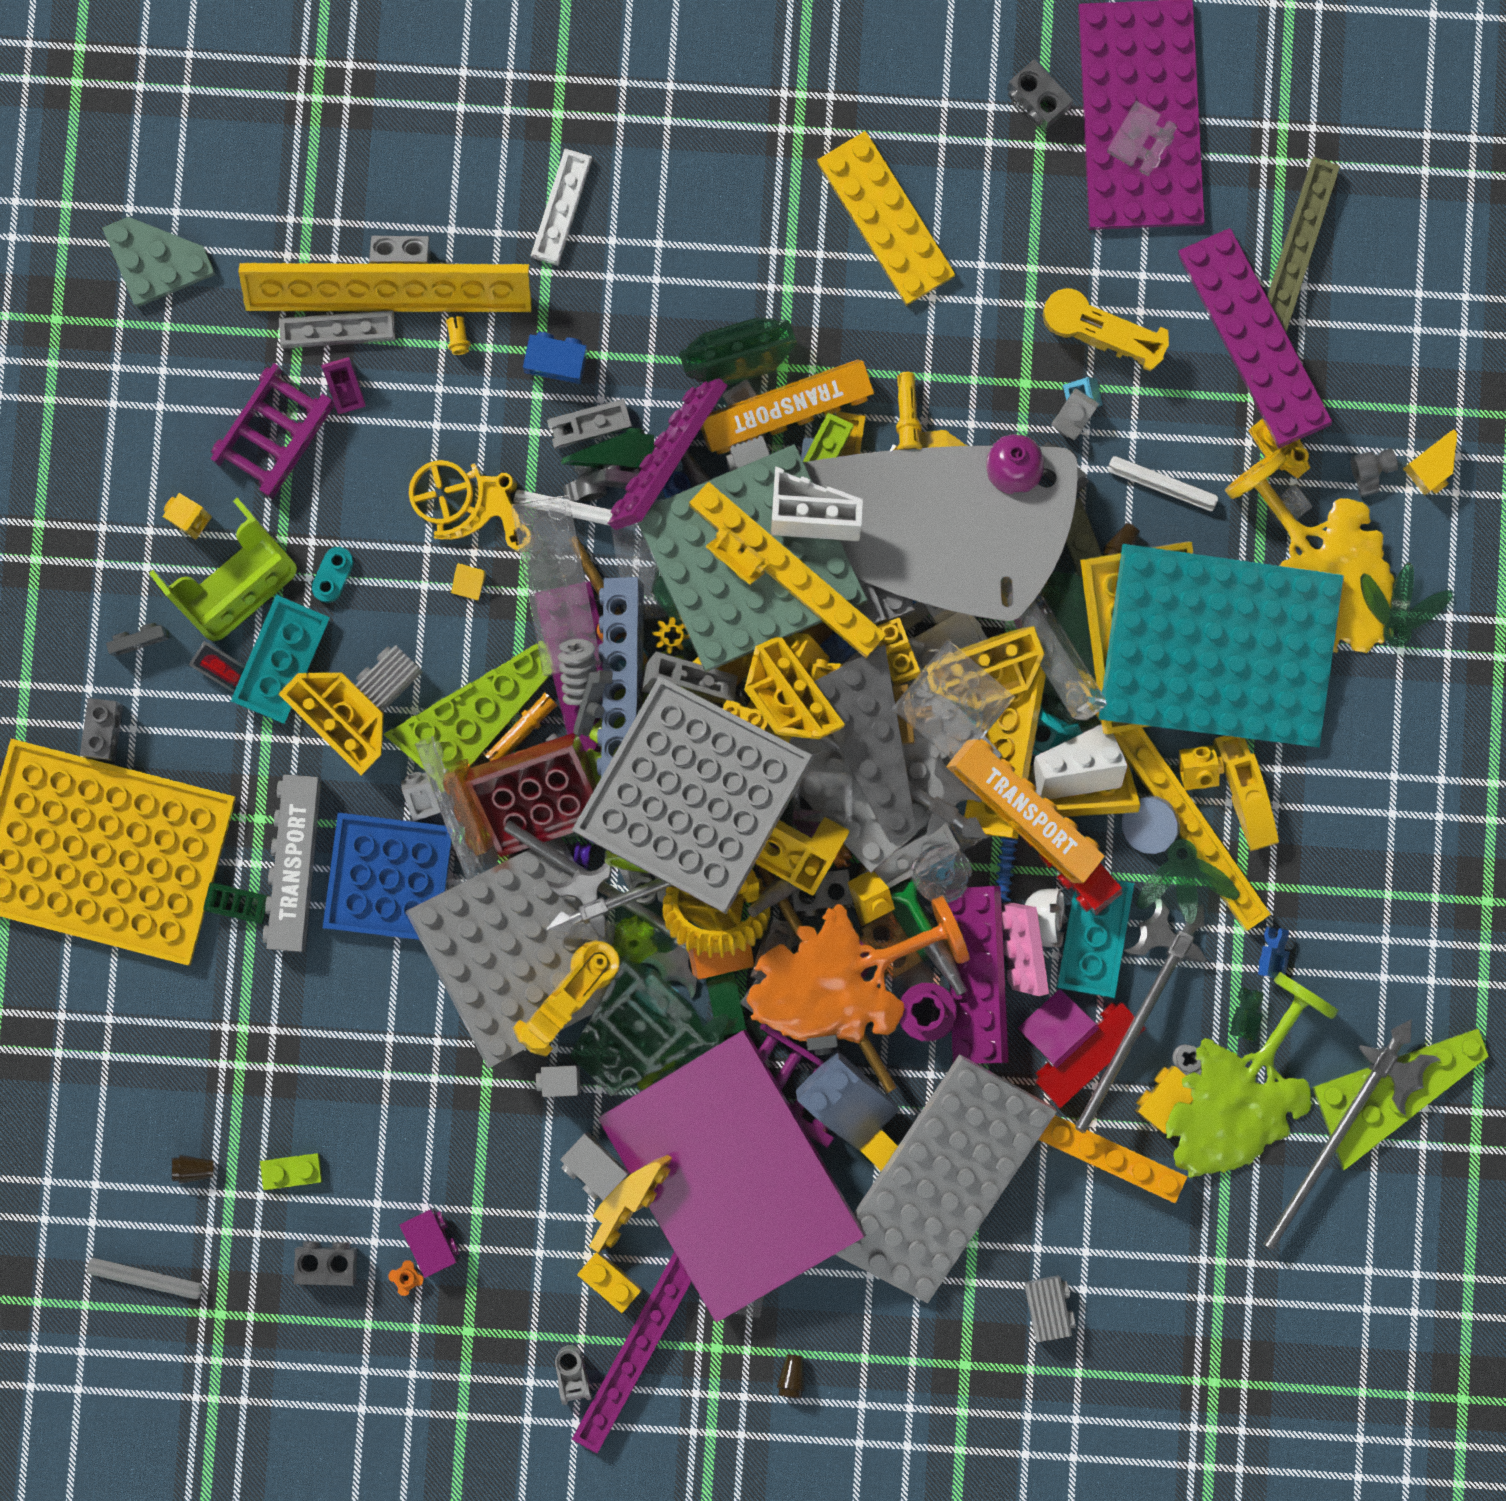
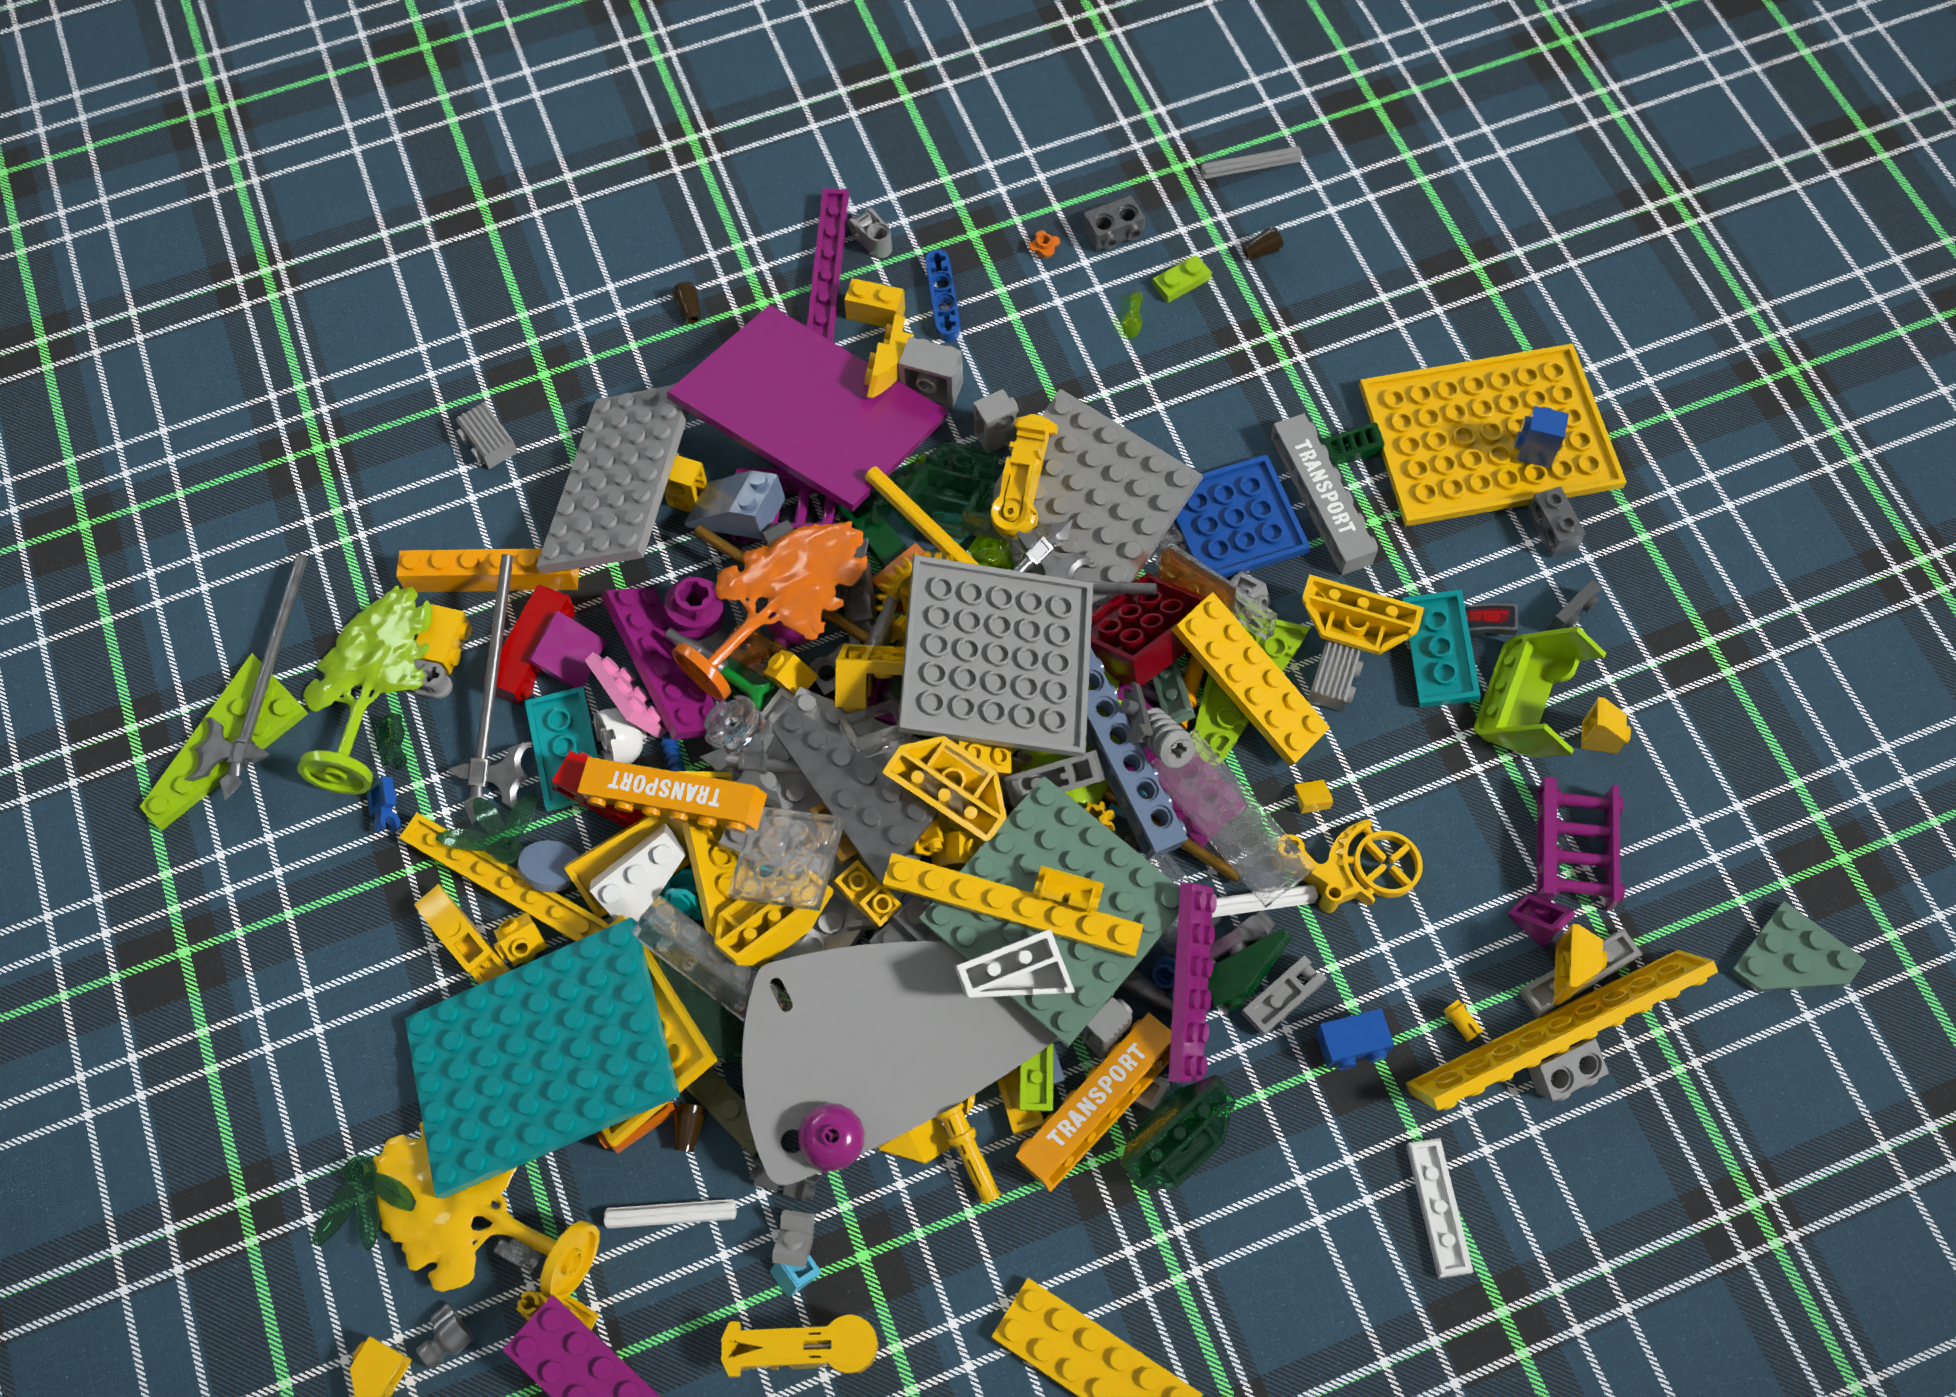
camera: 155 degrees right, 20 degrees down
(68, 809) = (1541, 436): none -> blue brick
(335, 575) = (1440, 743): teal plate -> none
(344, 326) = (1577, 961): none -> yellow slope
(365, 1145) = (1132, 321): none -> clear neon green piece
(430, 1242) = (1039, 272): magenta brick -> none
(469, 700) = (1251, 679): none -> yellow plate
(540, 1267) = (942, 295): none -> blue beam
(542, 719) = (1173, 694): none -> sand green tile
(680, 982) = (917, 516): none -> yellow axle

